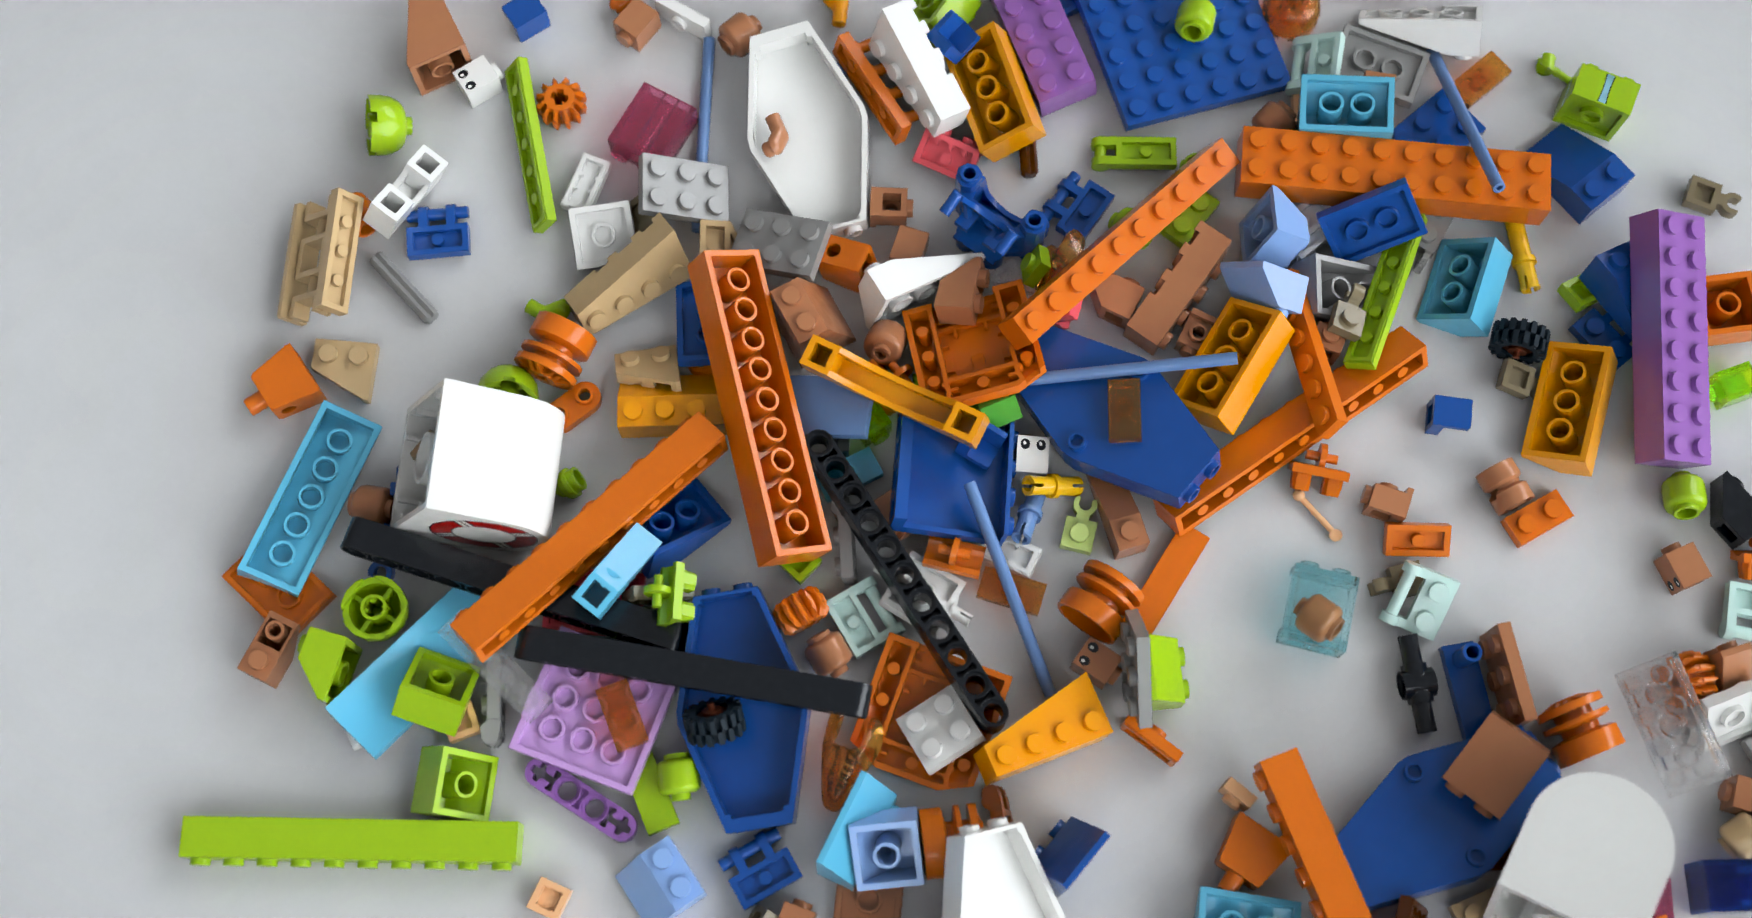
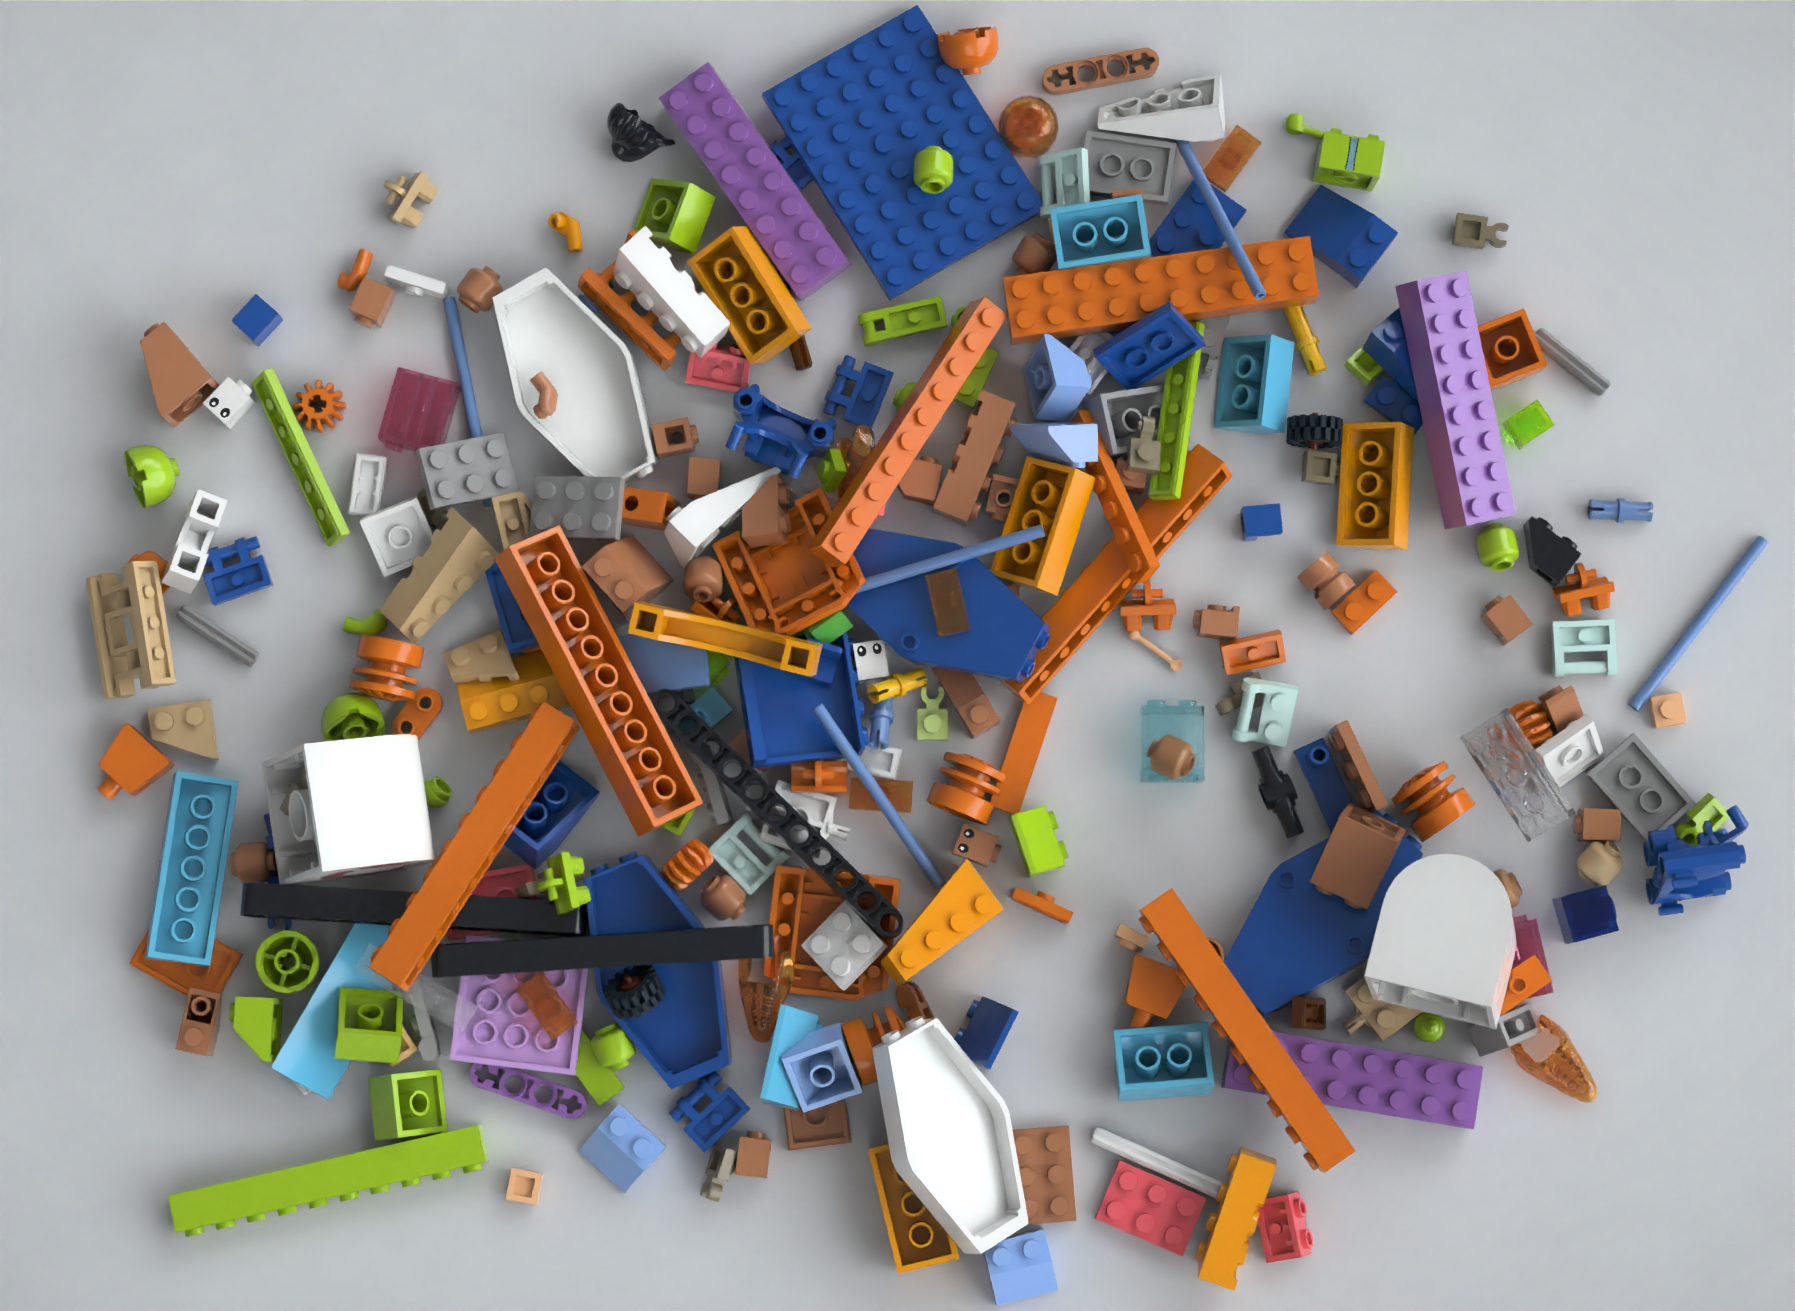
camera: 15 degrees left, 10 degrees up
(617, 571) = (508, 875): medium azure slope -> none
(953, 36) = (696, 252): blue panel -> none
(1137, 664) = (1012, 847): light grey plate -> none

